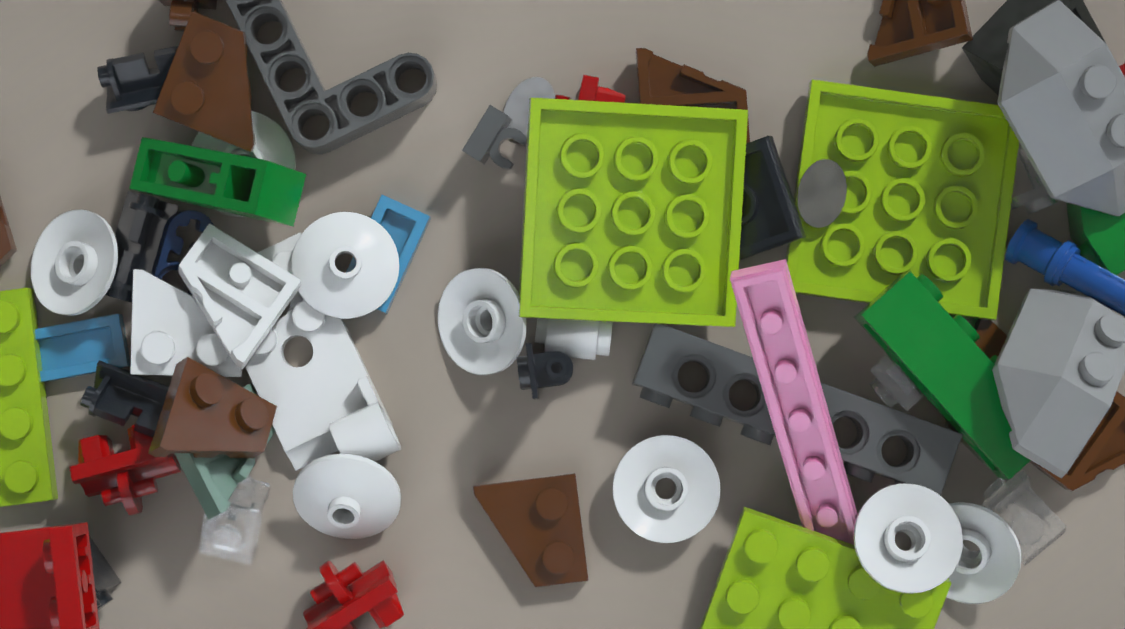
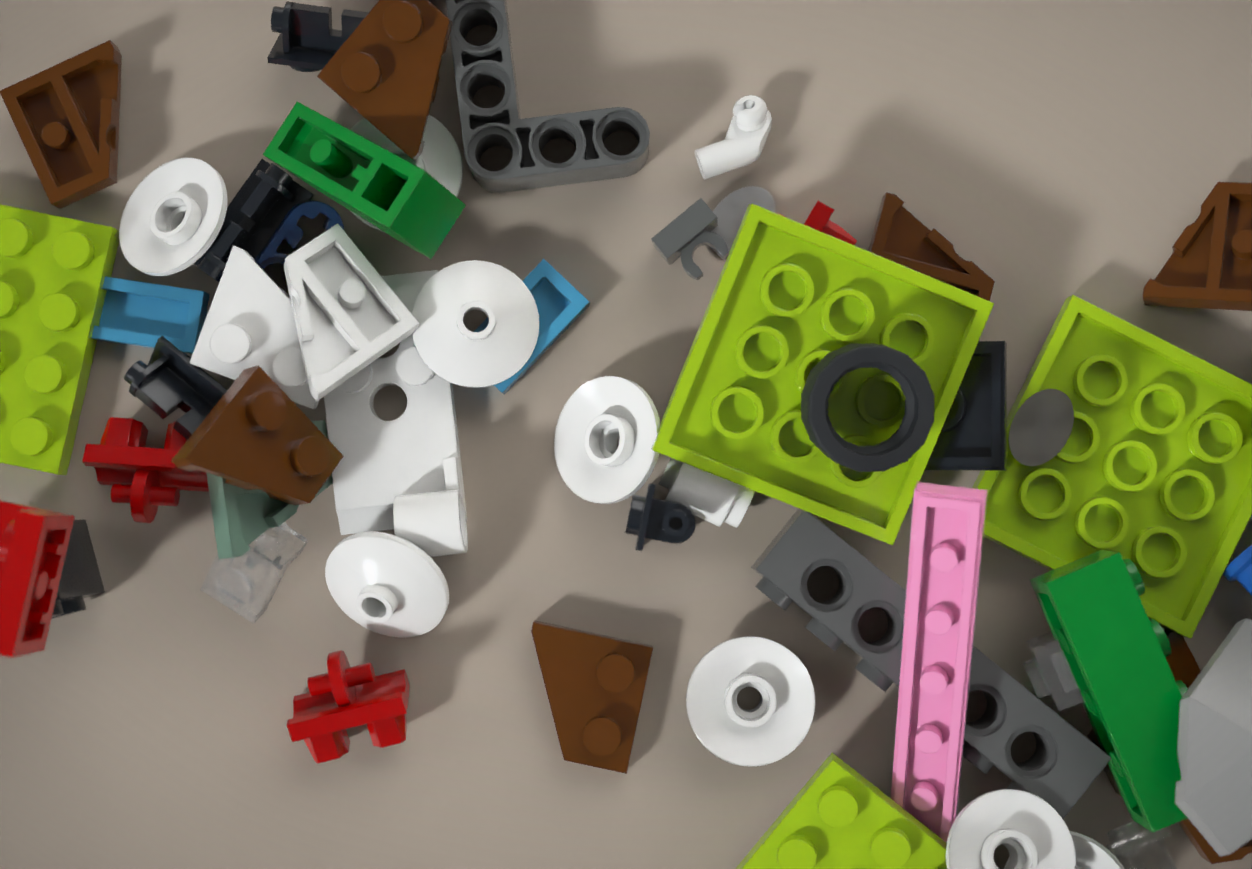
camera: 20 degrees right, 0 degrees up
(509, 45) = (742, 142): none -> white arm
(716, 230) = (915, 423): none -> black tyre

